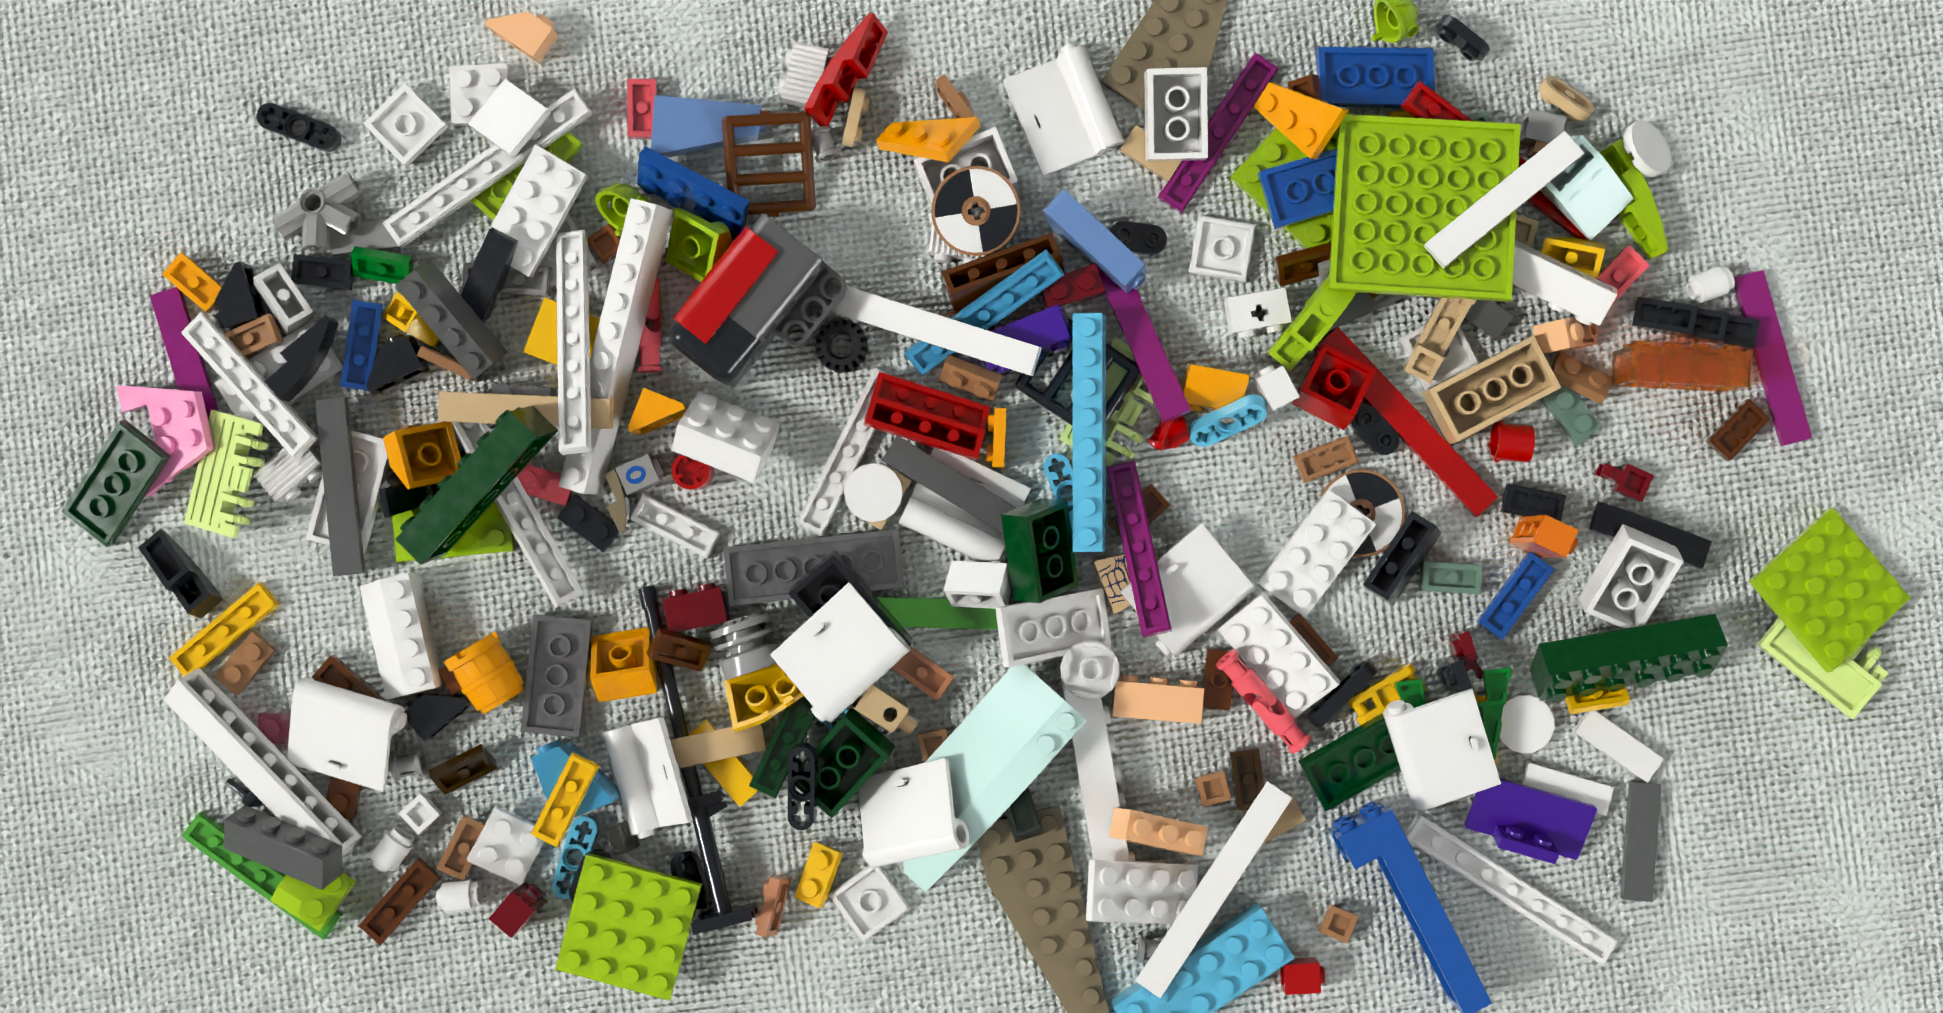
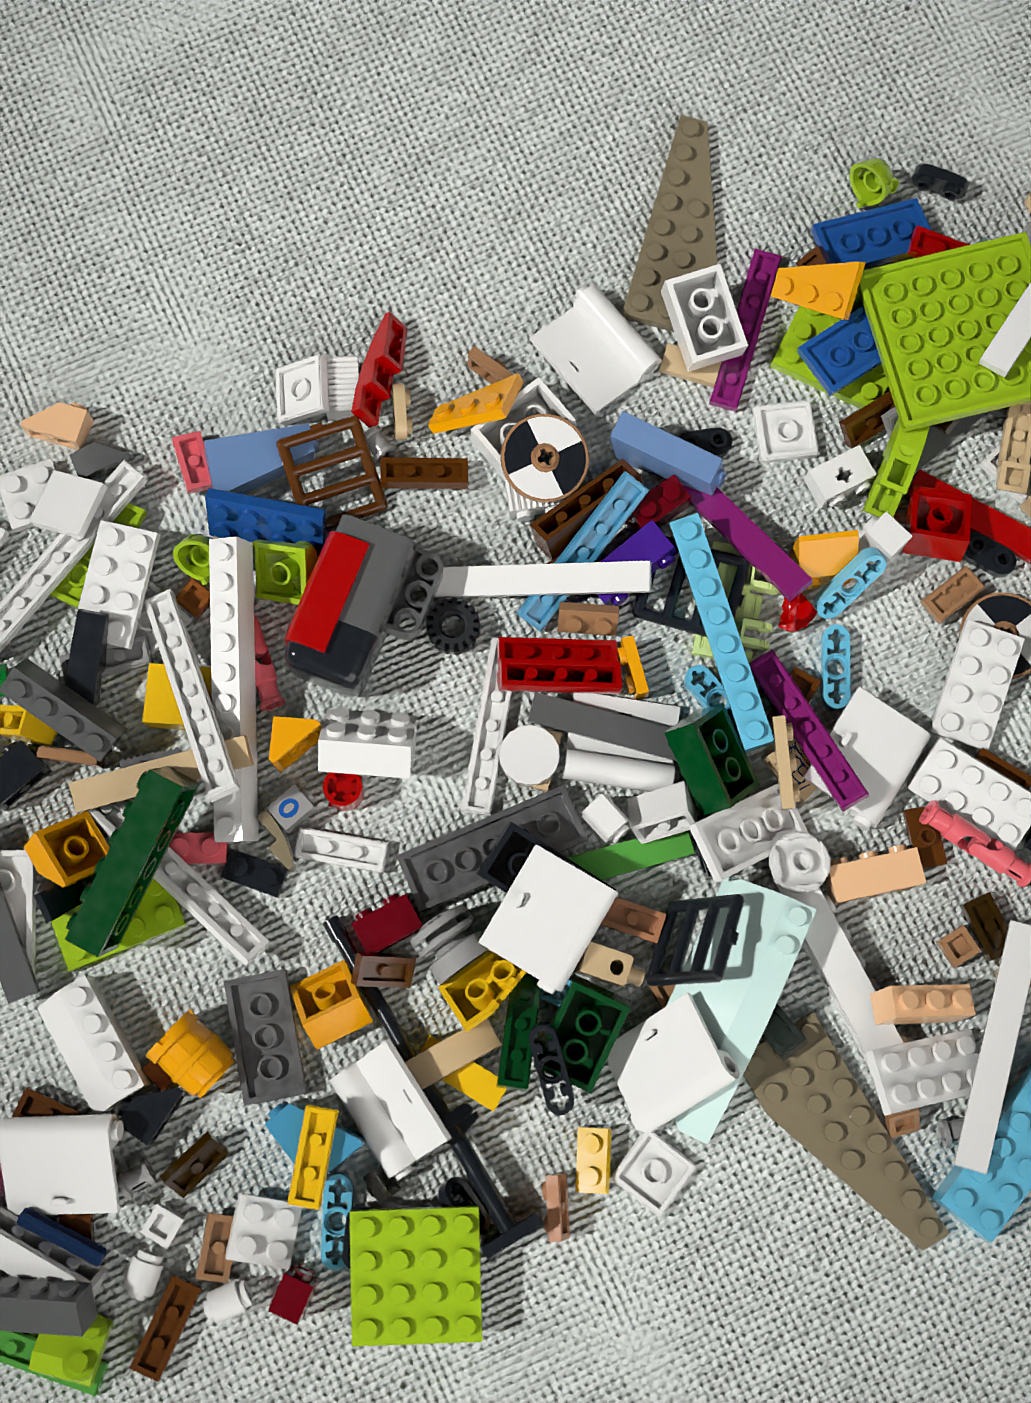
camera: 20 degrees left, 10 degrees down
(328, 796) = (62, 1236): none -> dark blue axle
(550, 77) = (97, 458): none -> dark grey slope
(765, 67) = (302, 390): none -> white tile
(858, 186) = (423, 473): none -> reddish brown plate
(925, 575) = (606, 819): none -> white brick
(994, 724) = (697, 973): none -> black bar
(1106, 575) = (785, 762): none -> tan plate
(1106, 930) = (902, 1122): none -> medium nougat plate
(1203, 476) = (828, 646): none -> medium azure beam

